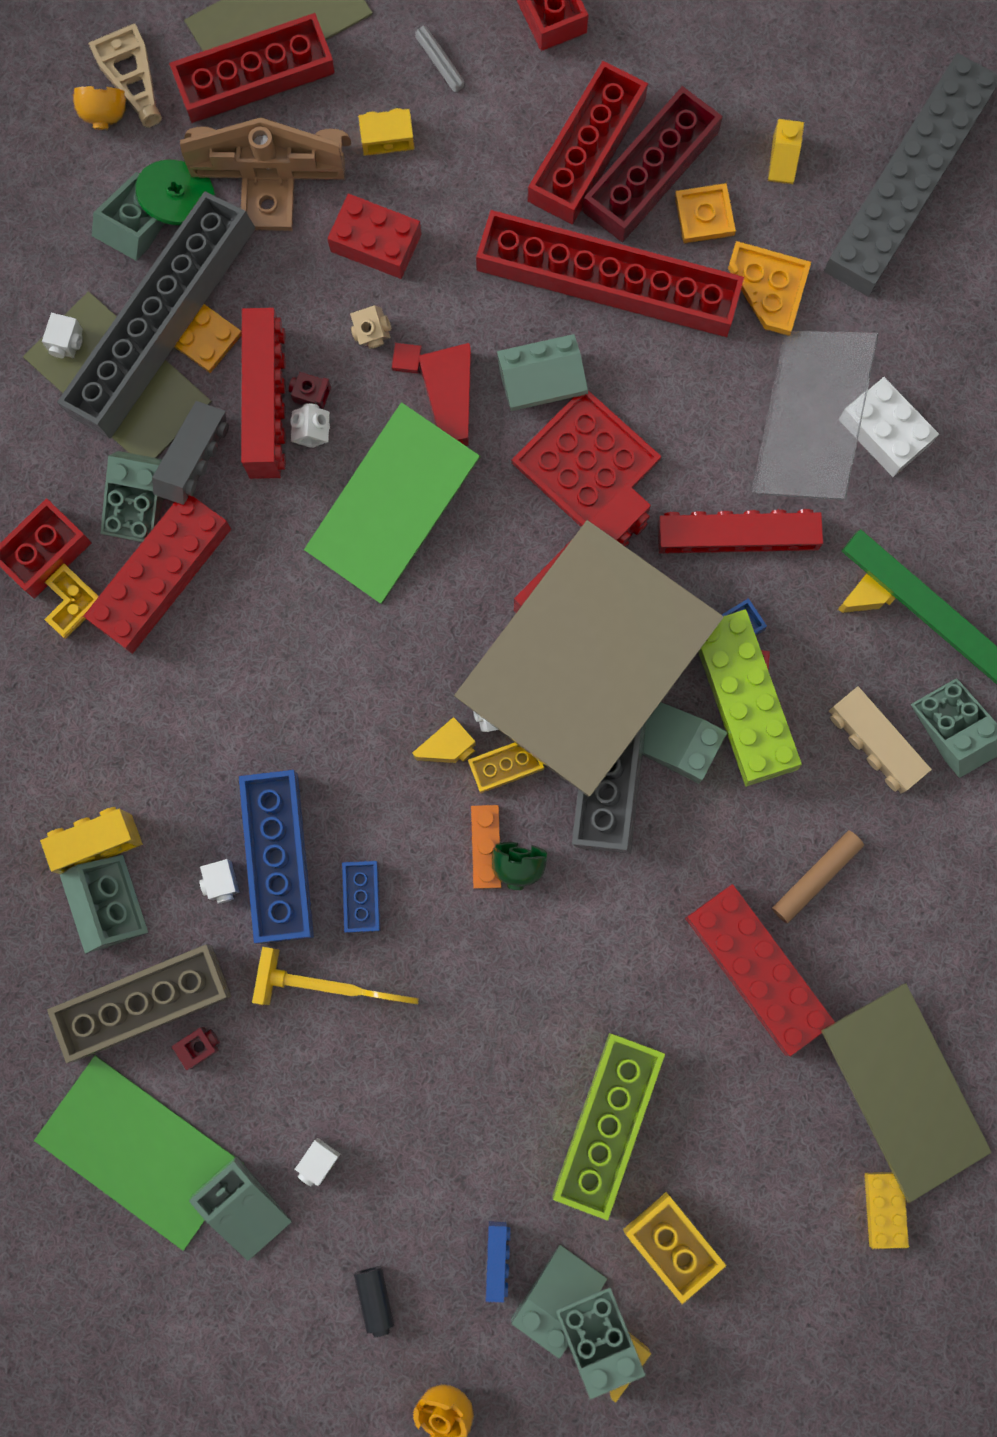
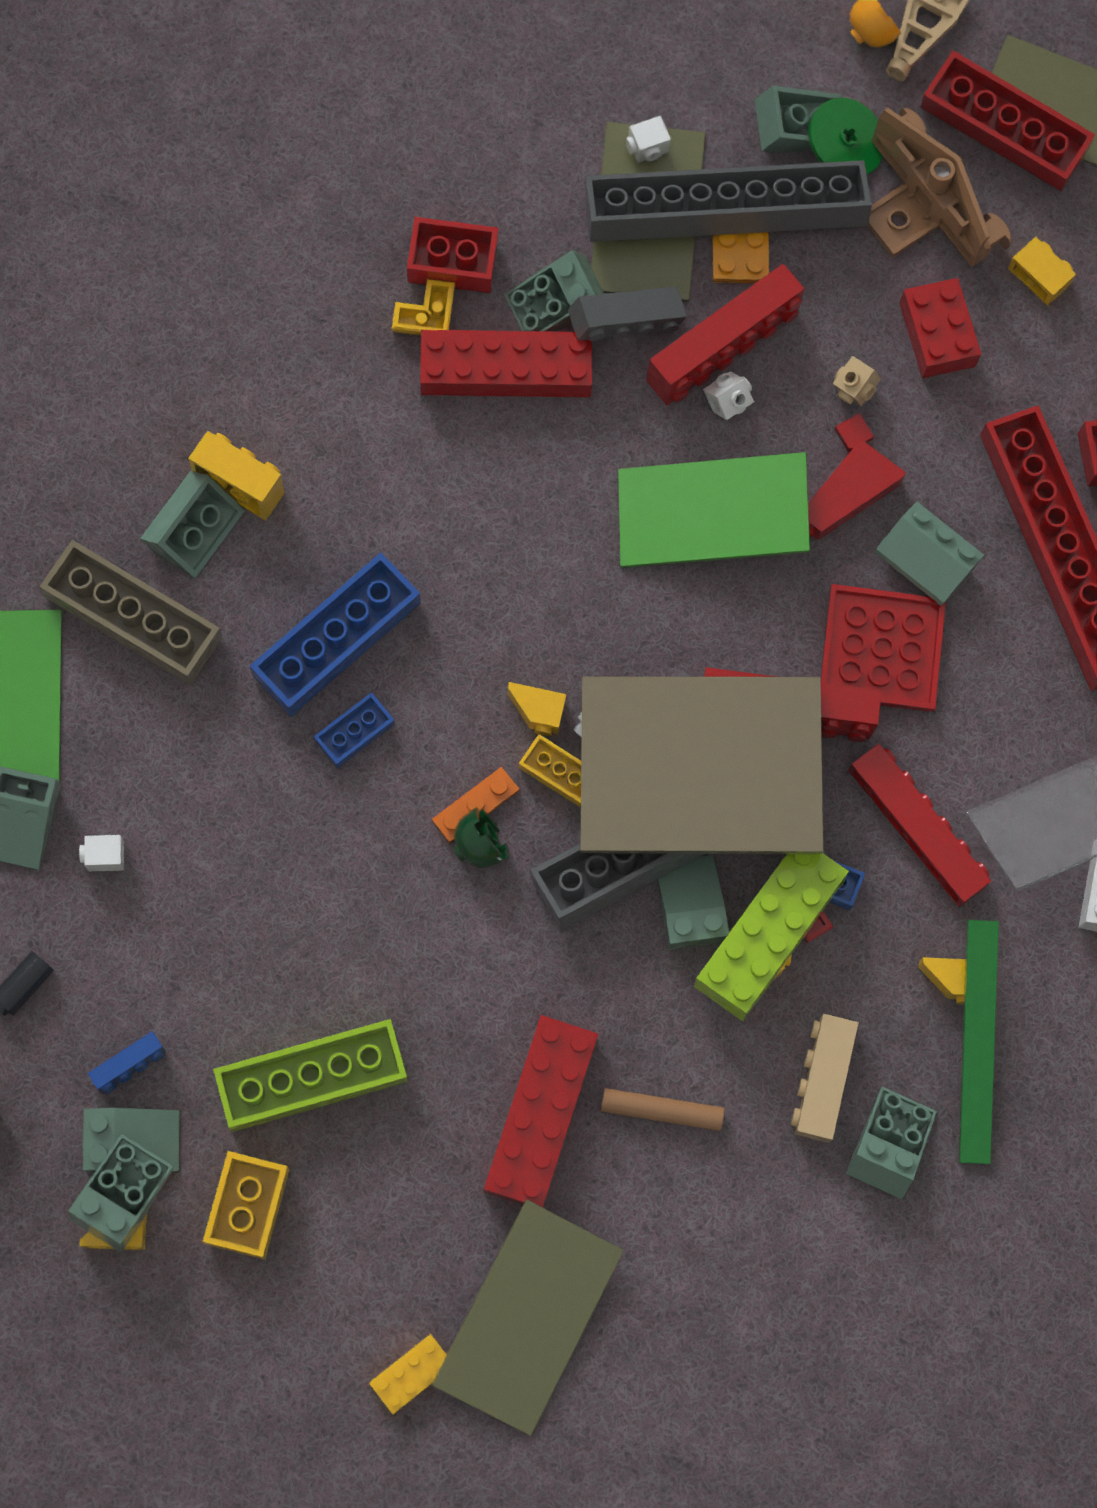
camera: 45 degrees right, 5 degrees down
(186, 1049) = (120, 678): dark red brick -> none
(219, 881) = (281, 603): white brick -> none
(270, 976) = (231, 702): yellow piece -> none
(316, 395) = (761, 382): dark red brick -> none

